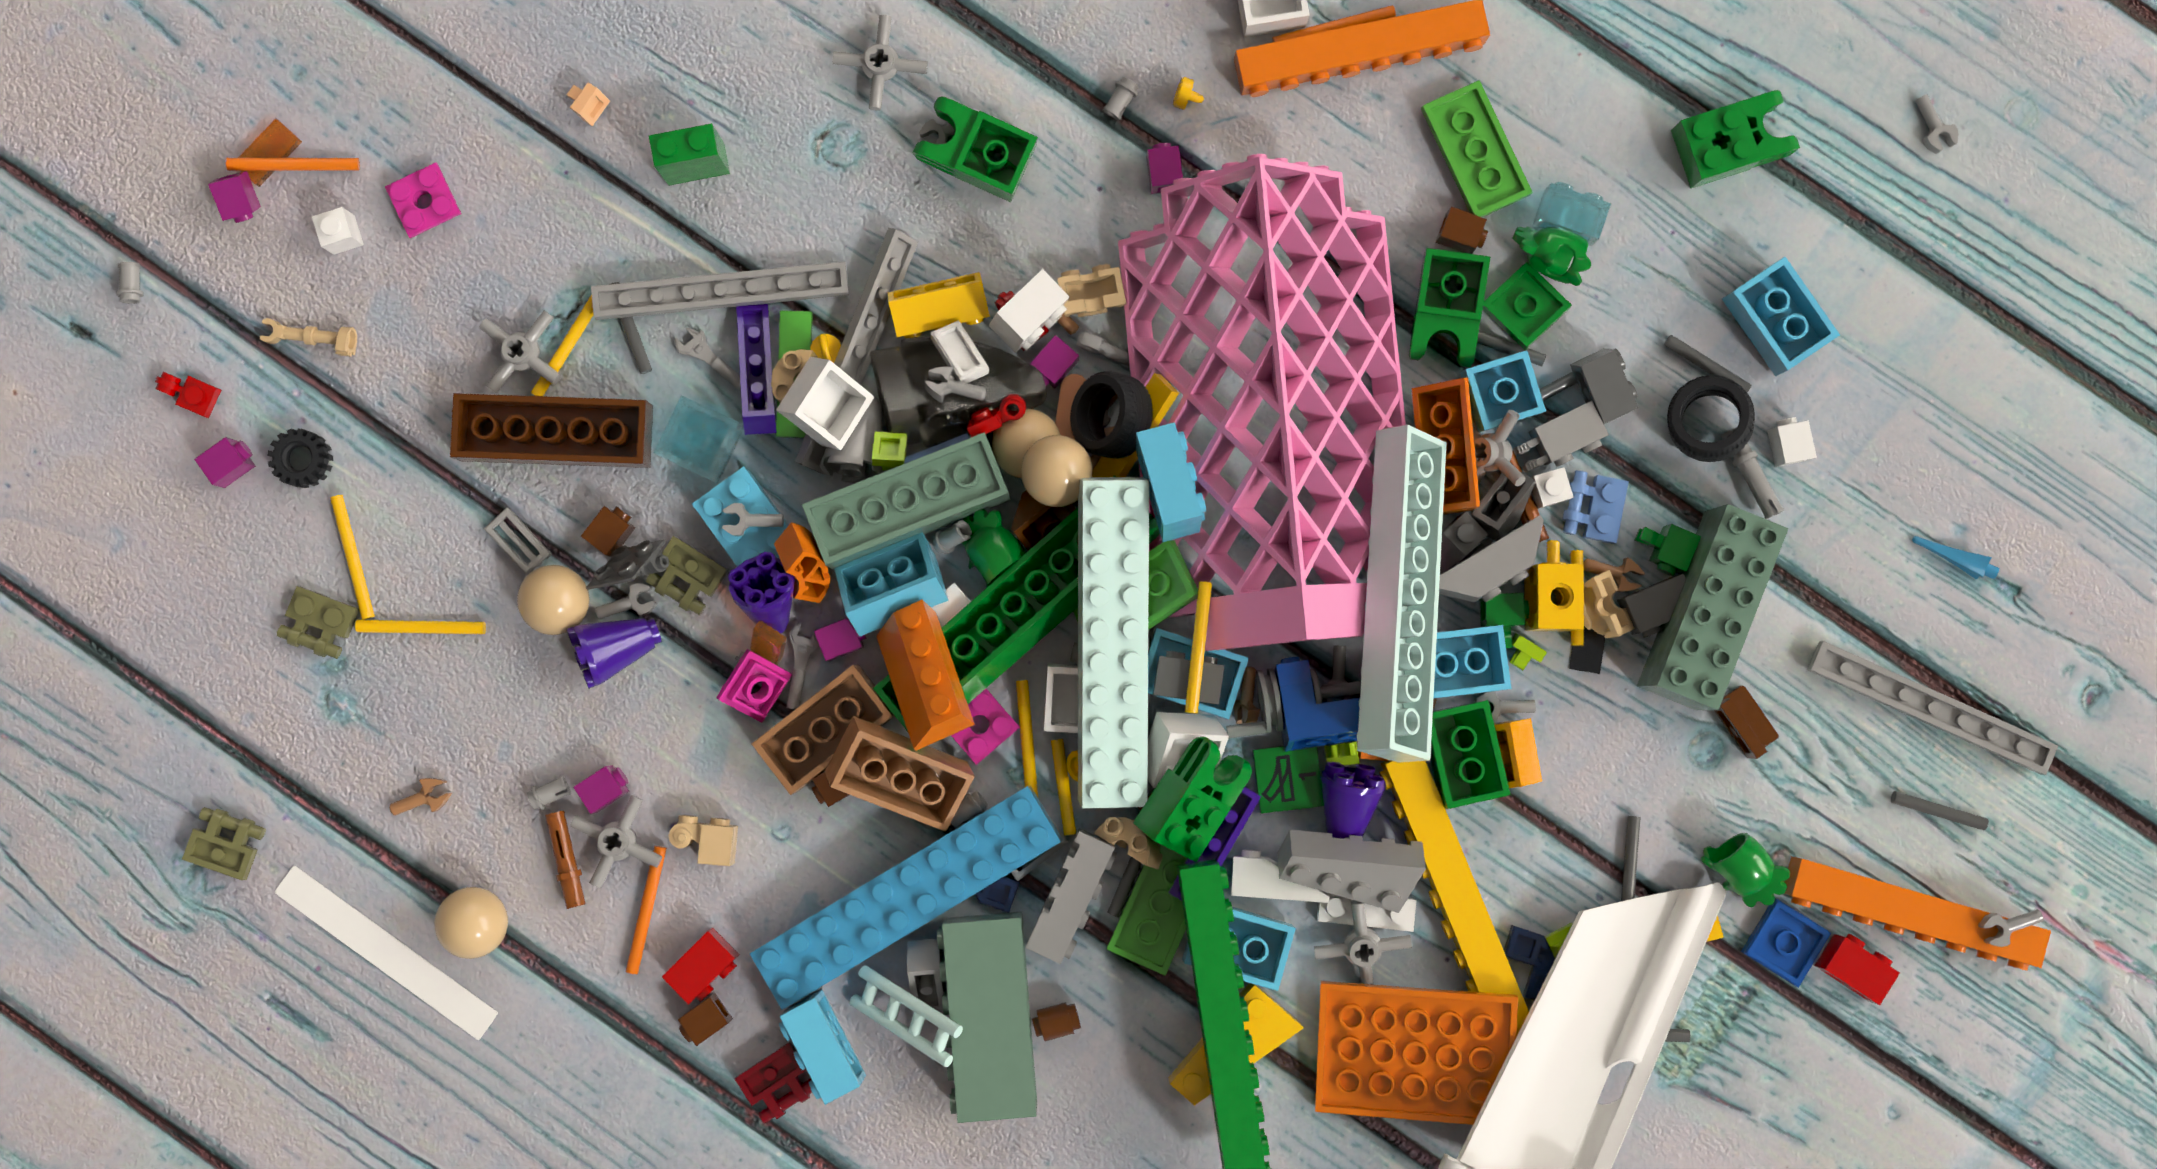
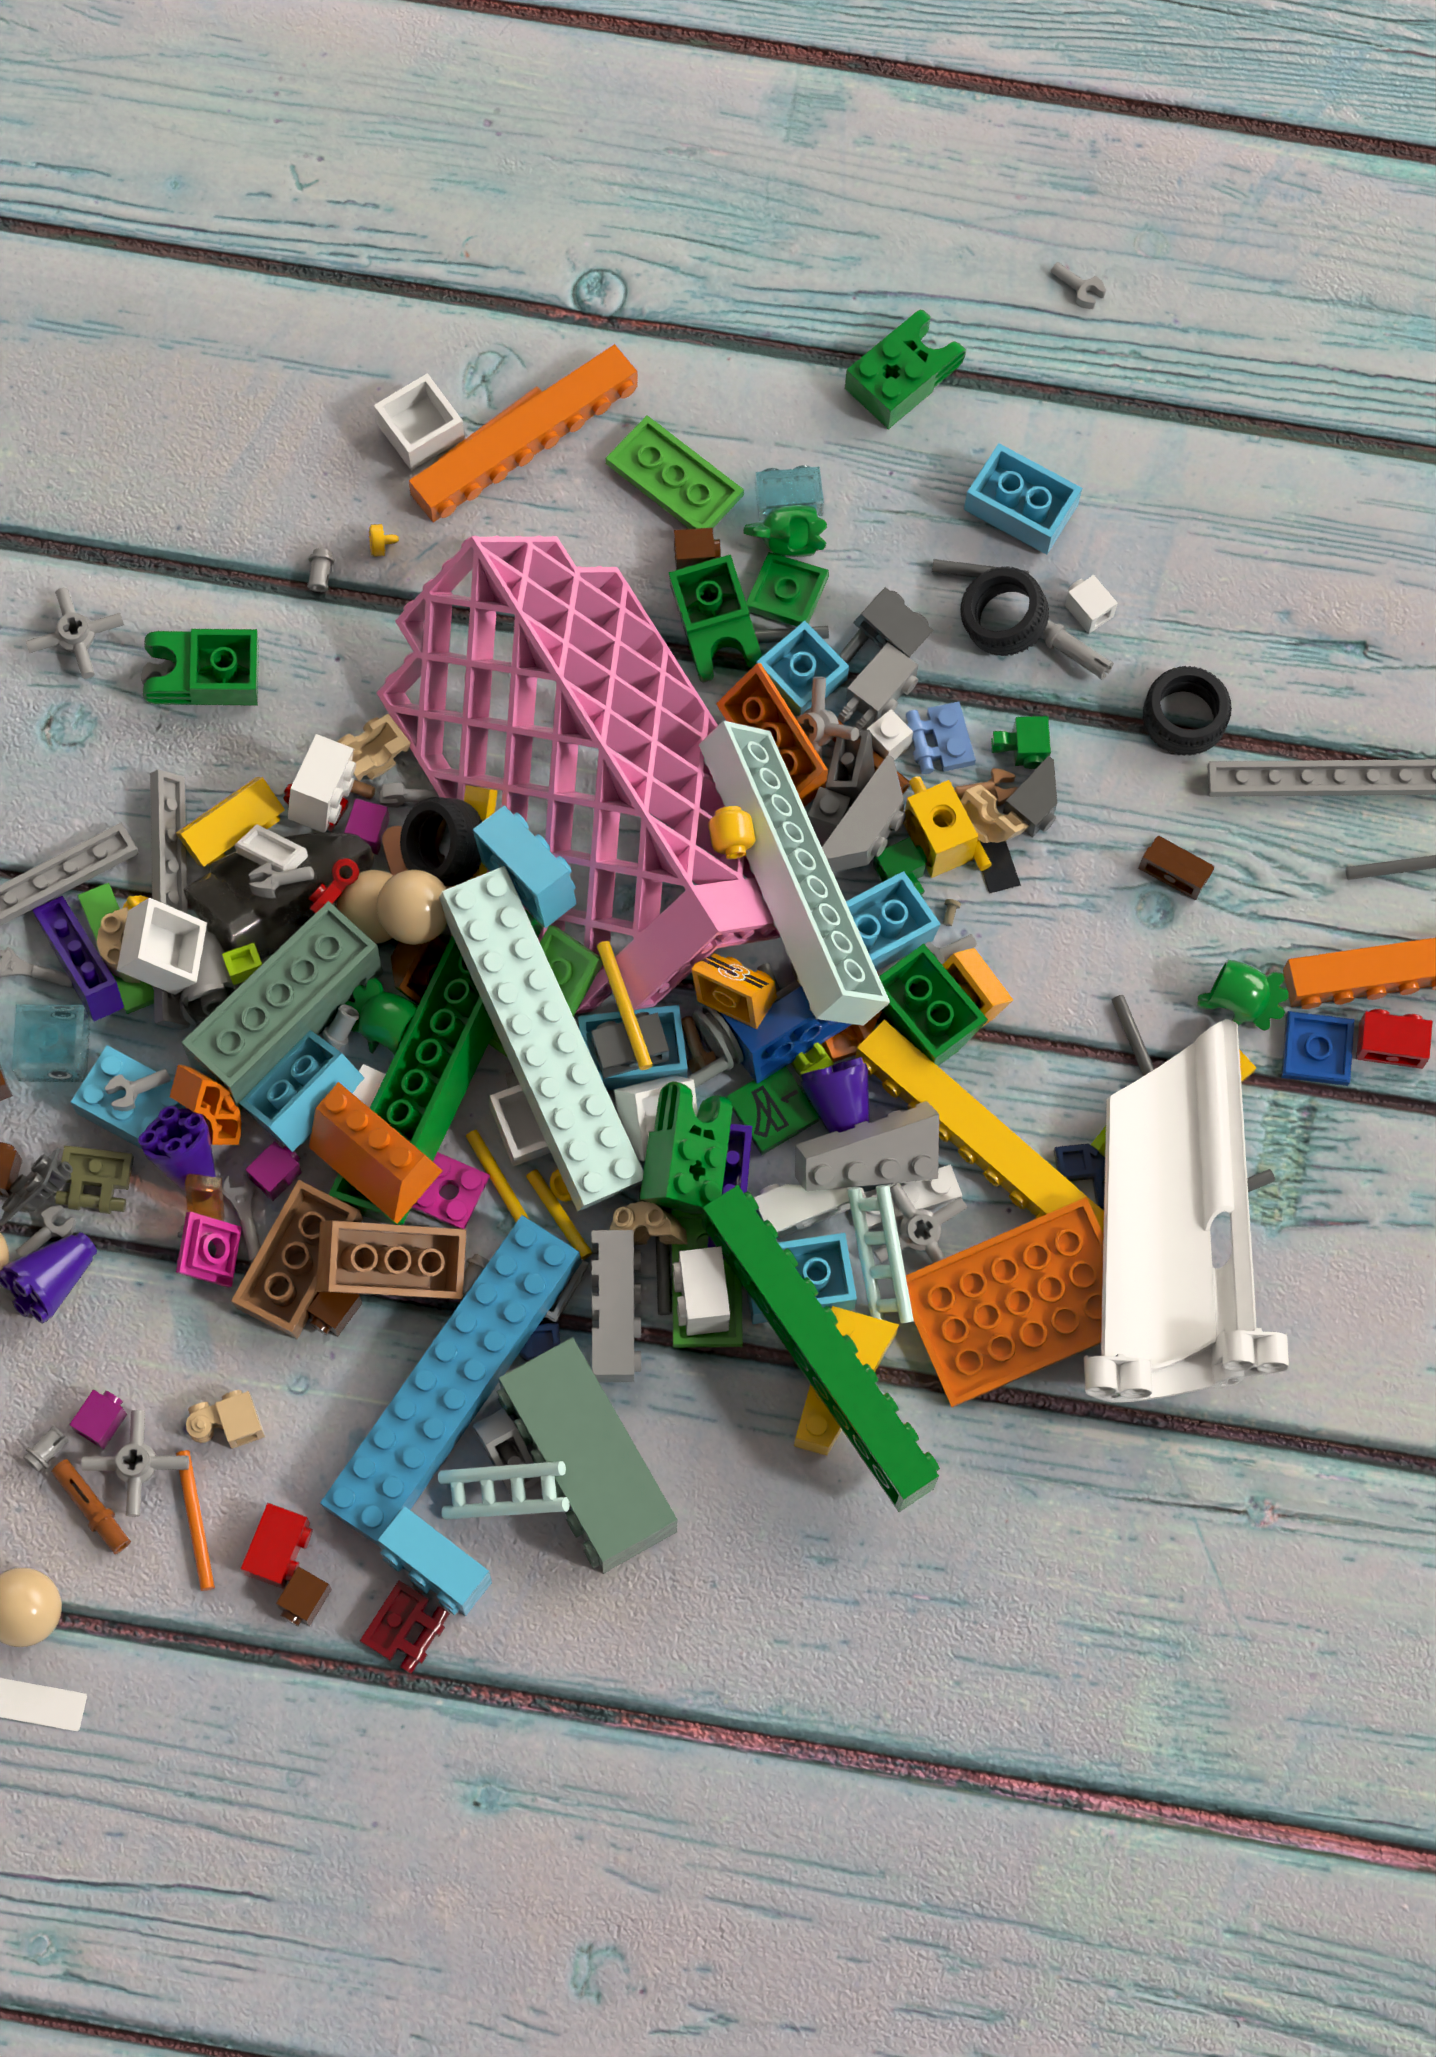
camera: 25 degrees left, 15 degrees down
(1056, 1021) = (657, 1436): reddish brown brick -> none
(1150, 925) = (703, 1289): none -> white piece
(1163, 166) = (384, 608): magenta brick -> none
(1301, 677) = (734, 989): none -> light orange slope
(1329, 951) = (888, 1236): none -> light aqua bar
(1365, 538) = (731, 832): none -> yellow head
(1523, 675) = (950, 912): none -> dark tan piece
(1525, 652) = (940, 890): lime tile -> none
(1715, 609) = (1090, 773): sand green brick -> none
(1860, 584) = (1194, 681): none -> black tyre
(1971, 563) = (1307, 638): dark azure piece -> none

